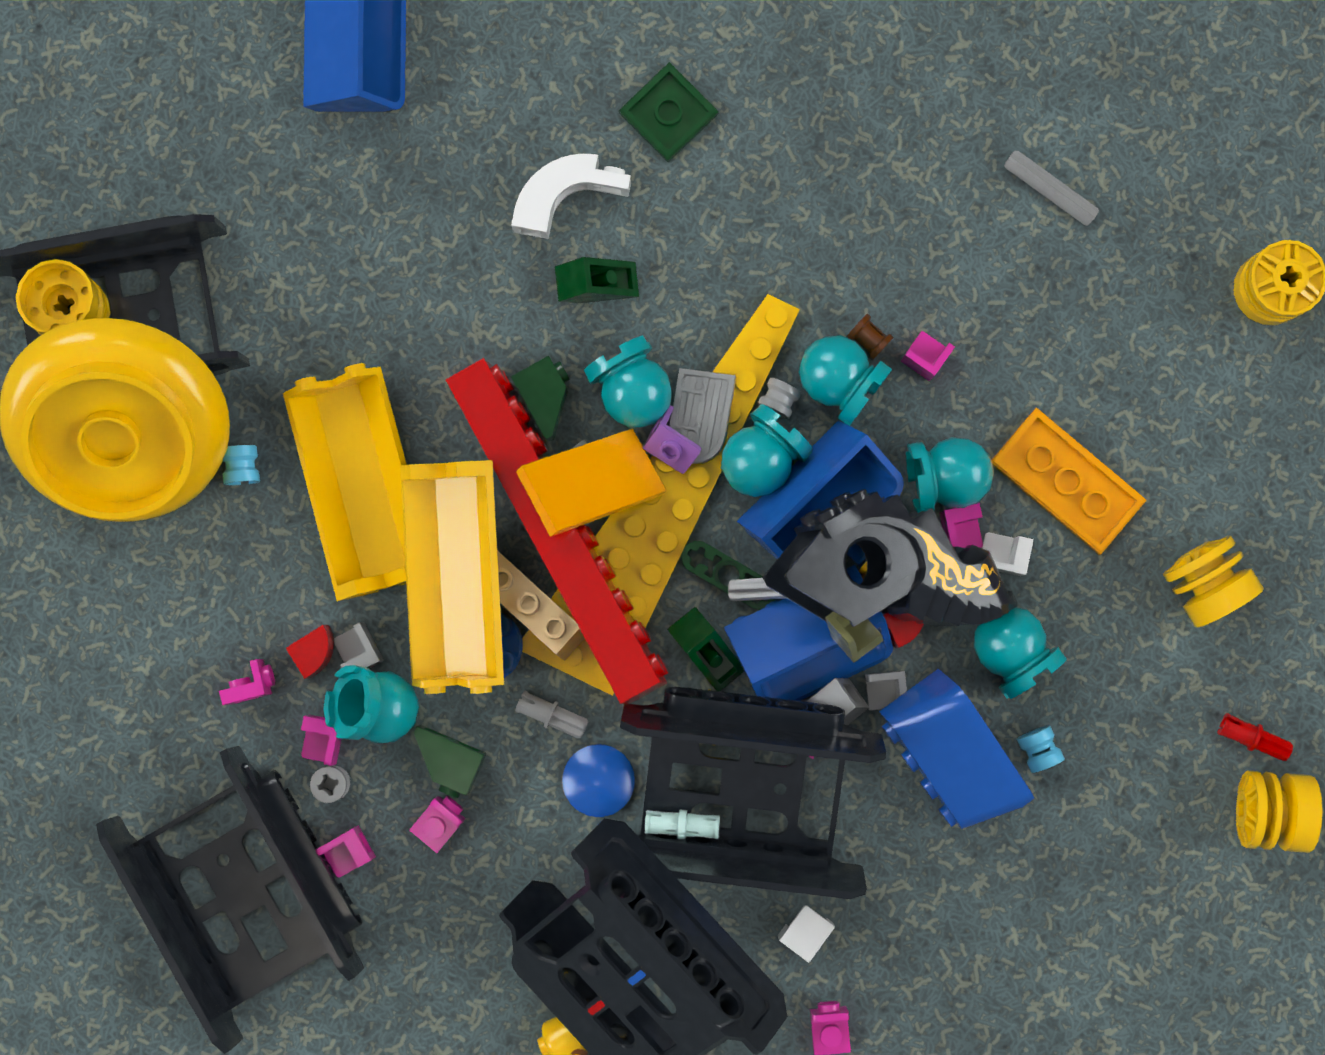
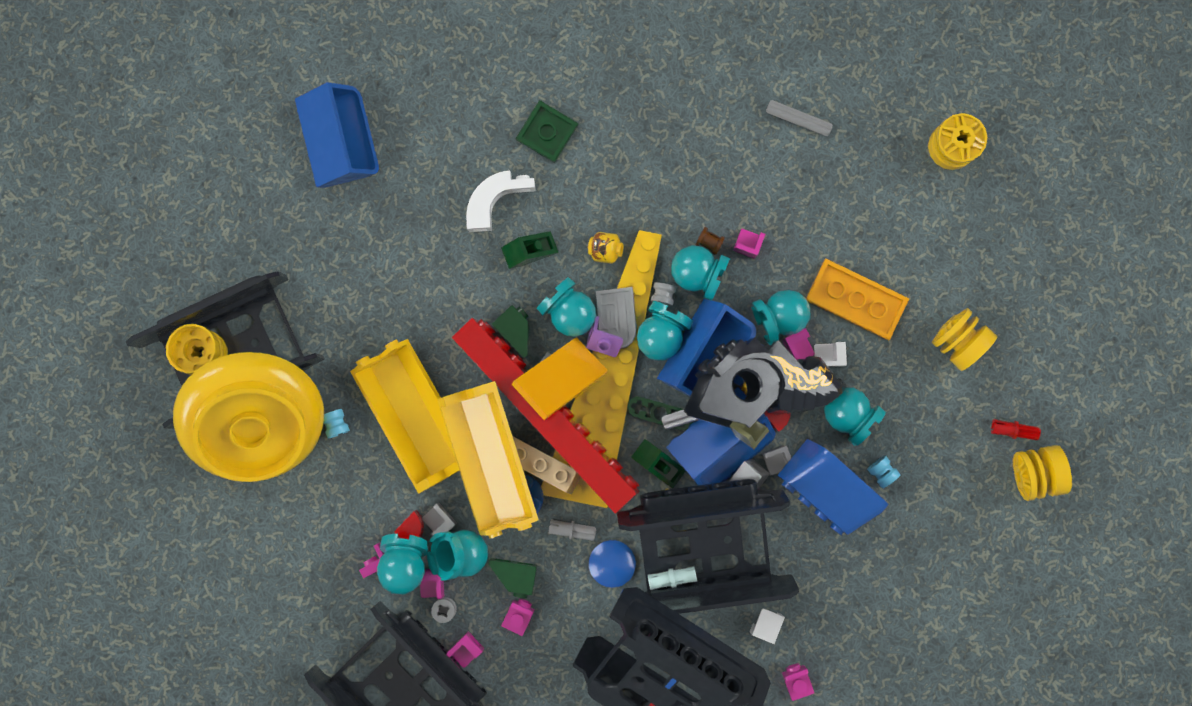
camera: 15 degrees left, 0 degrees up
(283, 699) = (401, 566): none -> teal tile
(710, 306) = (605, 247): none -> yellow head

